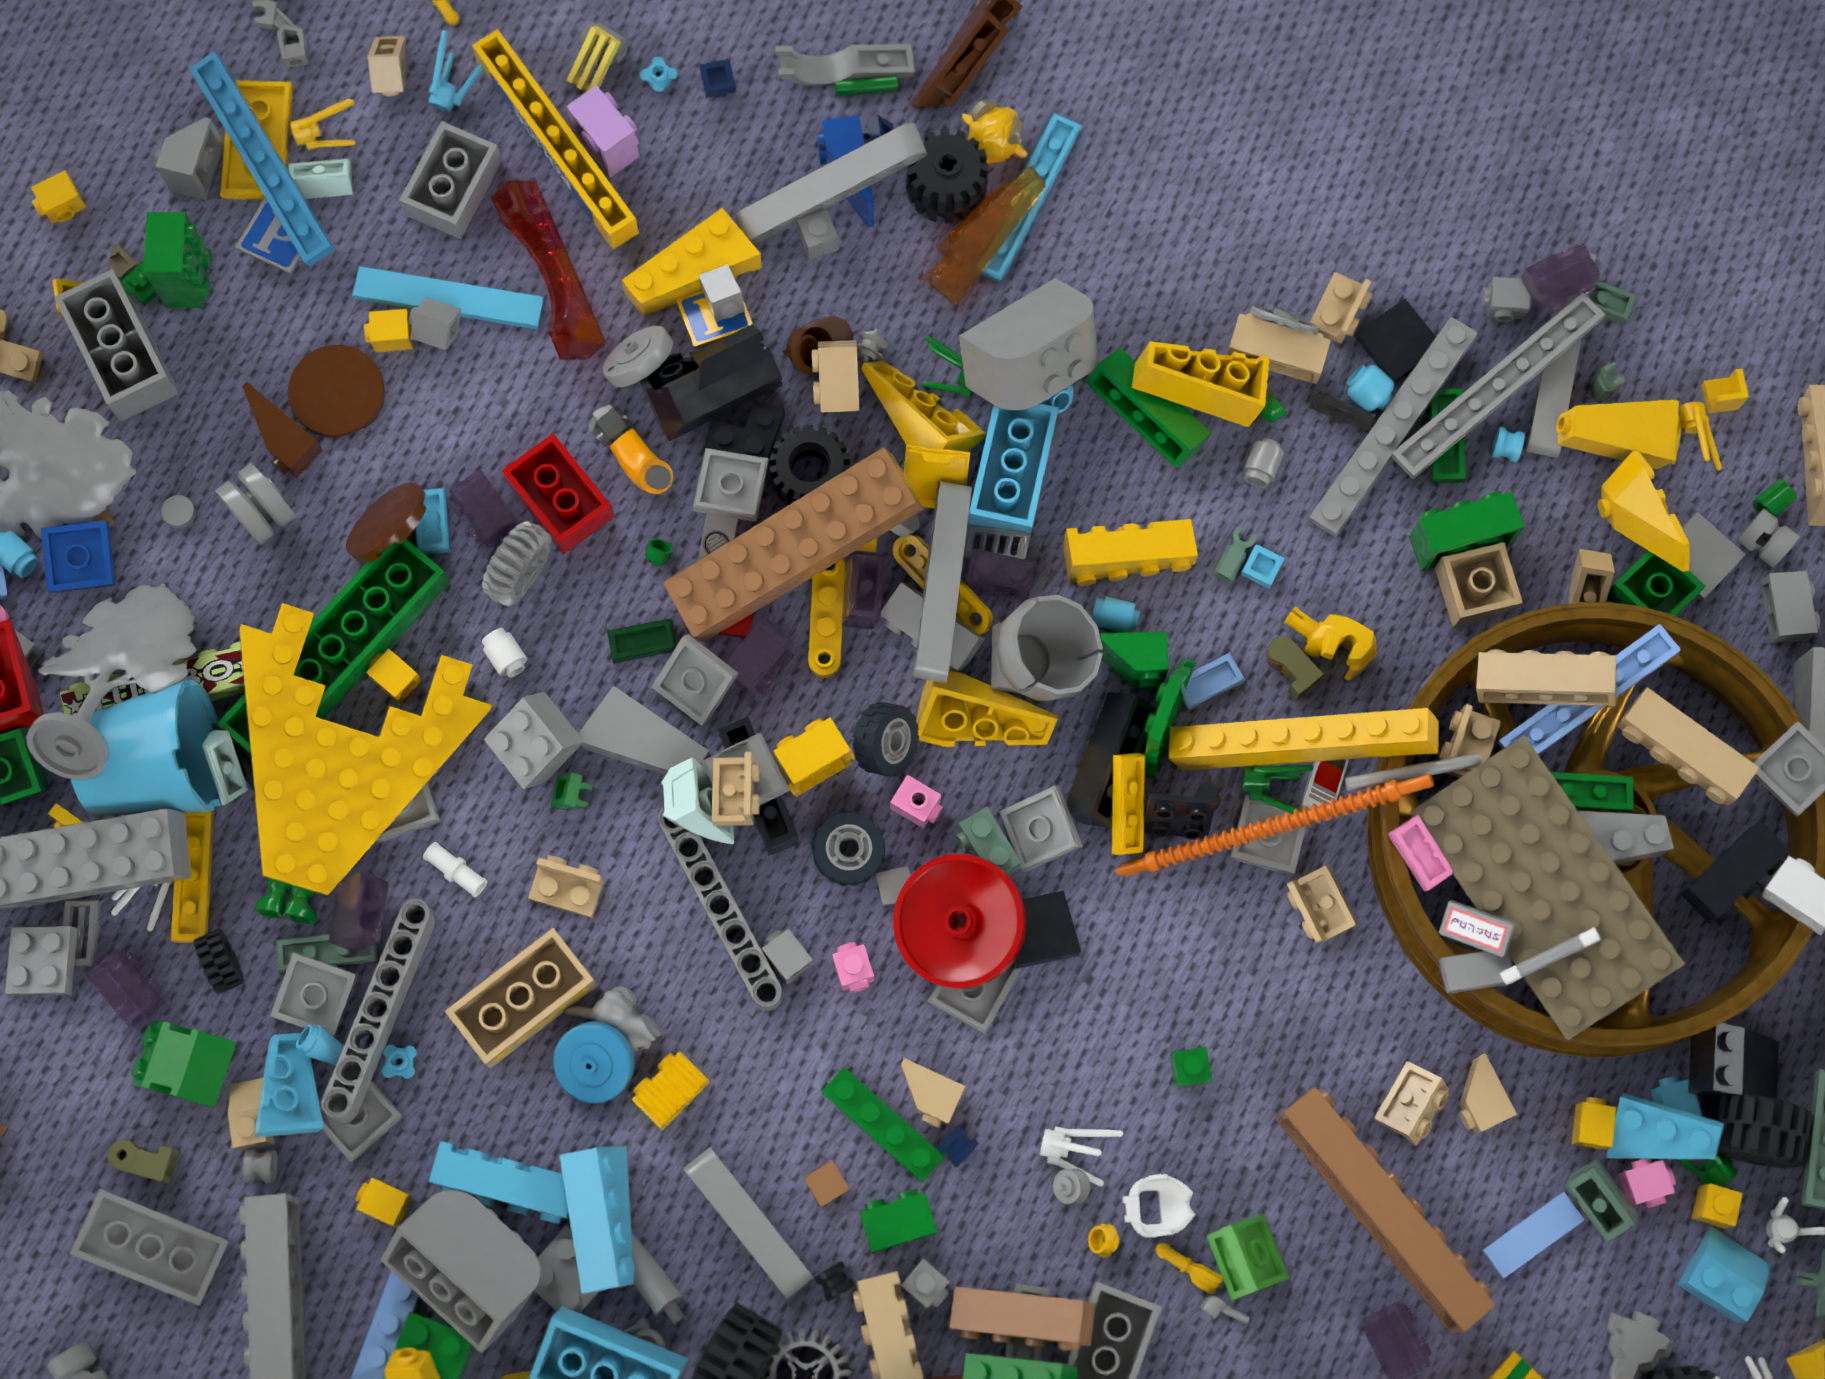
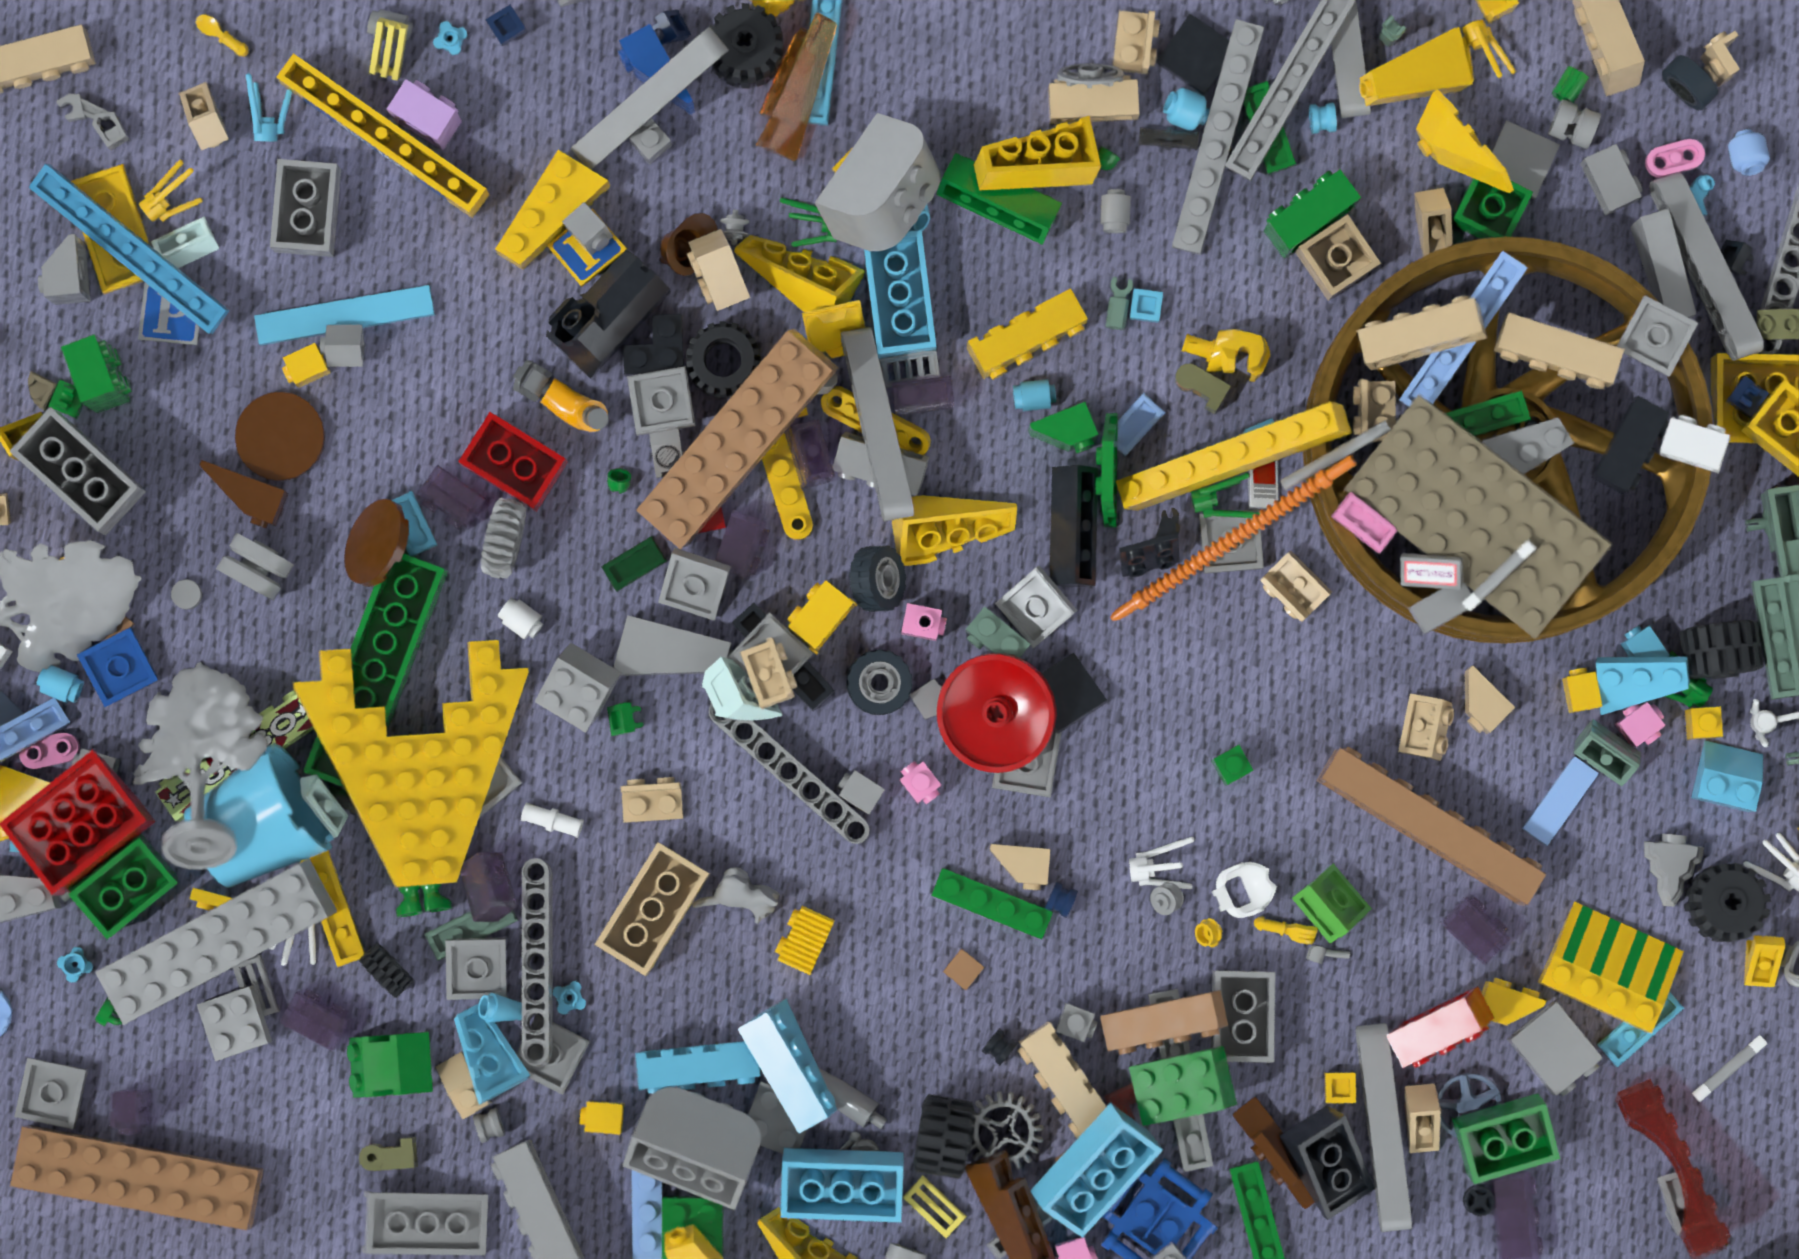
camera: 20 degrees left, 10 degrees up
(393, 675) = (432, 672): yellow brick -> none
(529, 219) = (387, 217): clear red arch -> none
(593, 1062) = (733, 940): dark azure wheel -> none
(637, 356) = (535, 313): light grey wheel -> none
(748, 1223) = (910, 1025): light grey beam -> none
(897, 1221) = (1034, 979): green brick -> none
(1042, 648) = (984, 454): light grey plate -> none
(1128, 803) = (1103, 559): yellow tile -> none
(1733, 1063) = (1683, 600): black slope -> none

